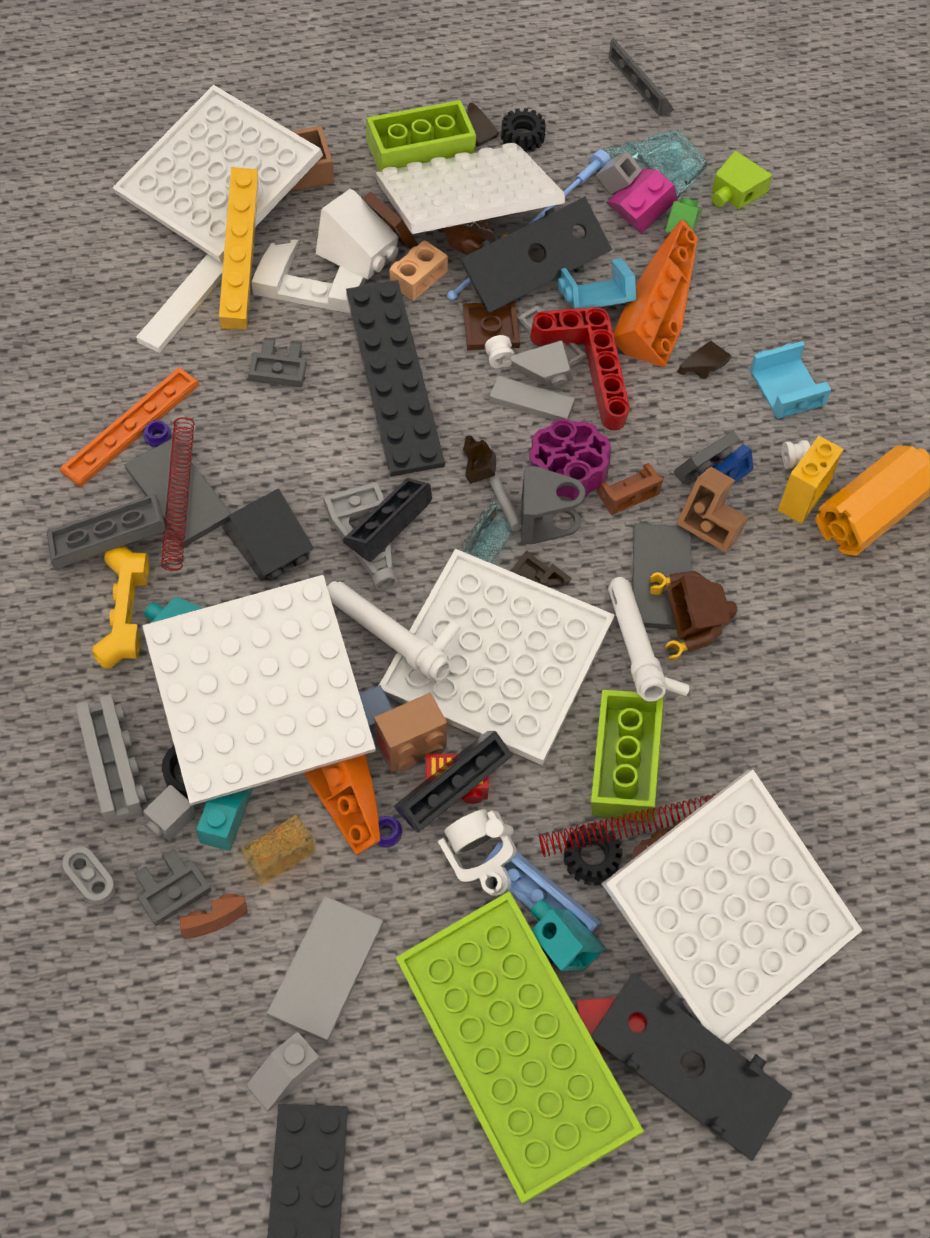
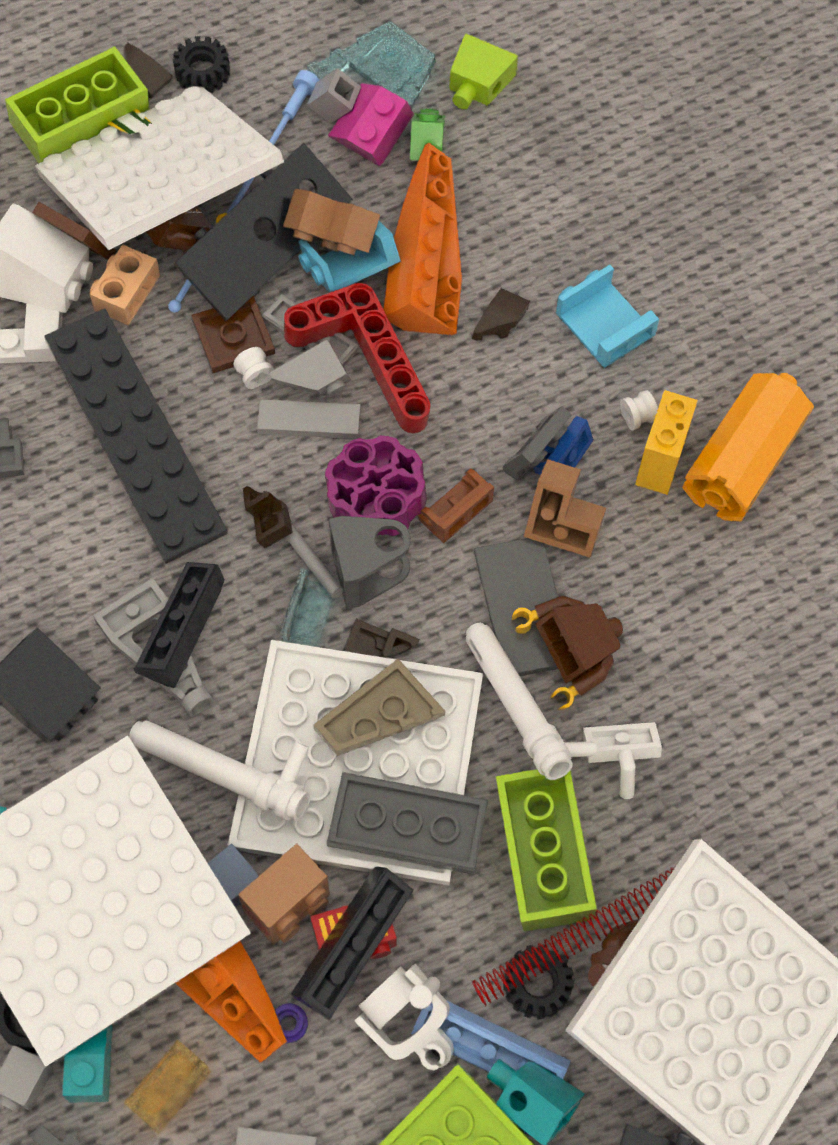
camera: 15 degrees left, 5 degrees up
(456, 157) = (130, 123): none -> sticker
(522, 707) = (407, 823): none -> dark grey tile
(523, 618) = (378, 710): none -> dark tan wing
(592, 260) = (337, 224): none -> medium nougat brick
(713, 697) = (624, 745): none -> white plate

